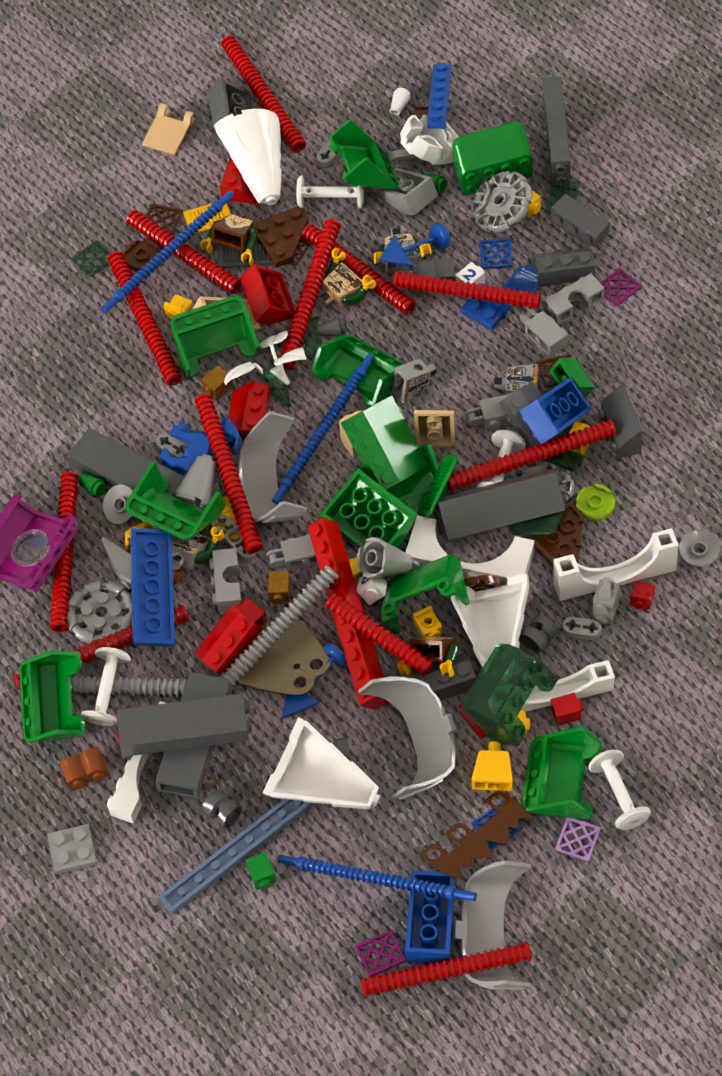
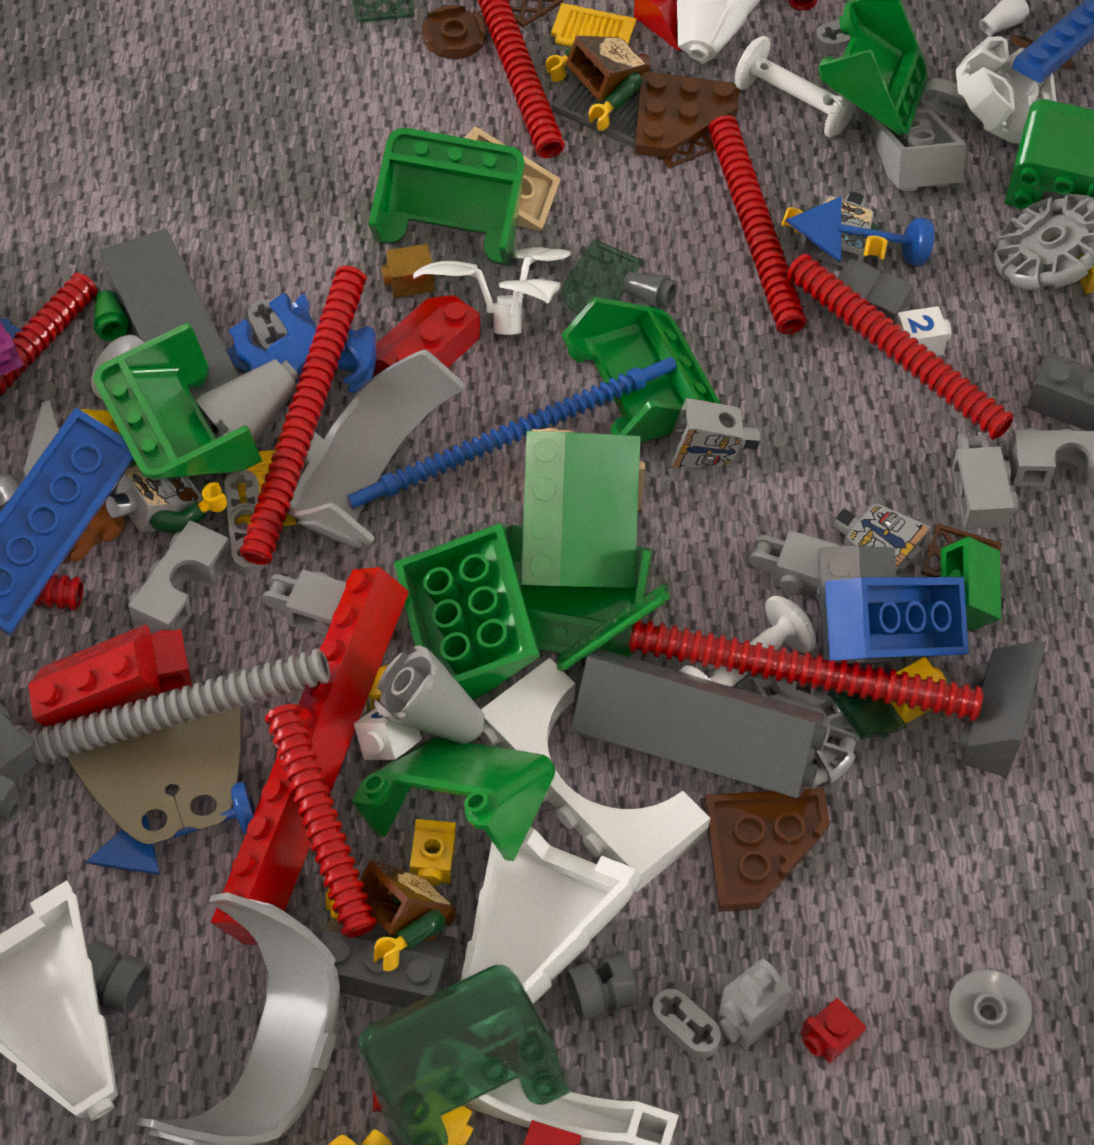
camera: 25 degrees right, 0 degrees up
(119, 295) = (364, 63): blue hose -> none
(145, 321) = (381, 119): red piece -> none
(176, 306) = (446, 124): yellow bracket -> none
(267, 295) = (588, 186): red slope -> none
(279, 587) = (248, 641): pearl gold brick -> none
(283, 398) = (488, 328): clear green window -> none
(311, 289) = (653, 213): red piece -> none
(342, 284) = (713, 231): torso -> none
(435, 427) = (684, 532): tan slope -> none
(439, 182) = (976, 161): green cone -> none
(482, 582) = (566, 838): reddish brown tile -> none
(485, 312) = (908, 400): blue plate -> none
(495, 243) = (1004, 299): blue window -> none
(523, 279) = (1007, 383): blue window -> none
(540, 525) = (738, 799): clear green window -> none
(598, 507) = (859, 825): lime tile -> none
(654, 560) = (891, 979): white arch -> none

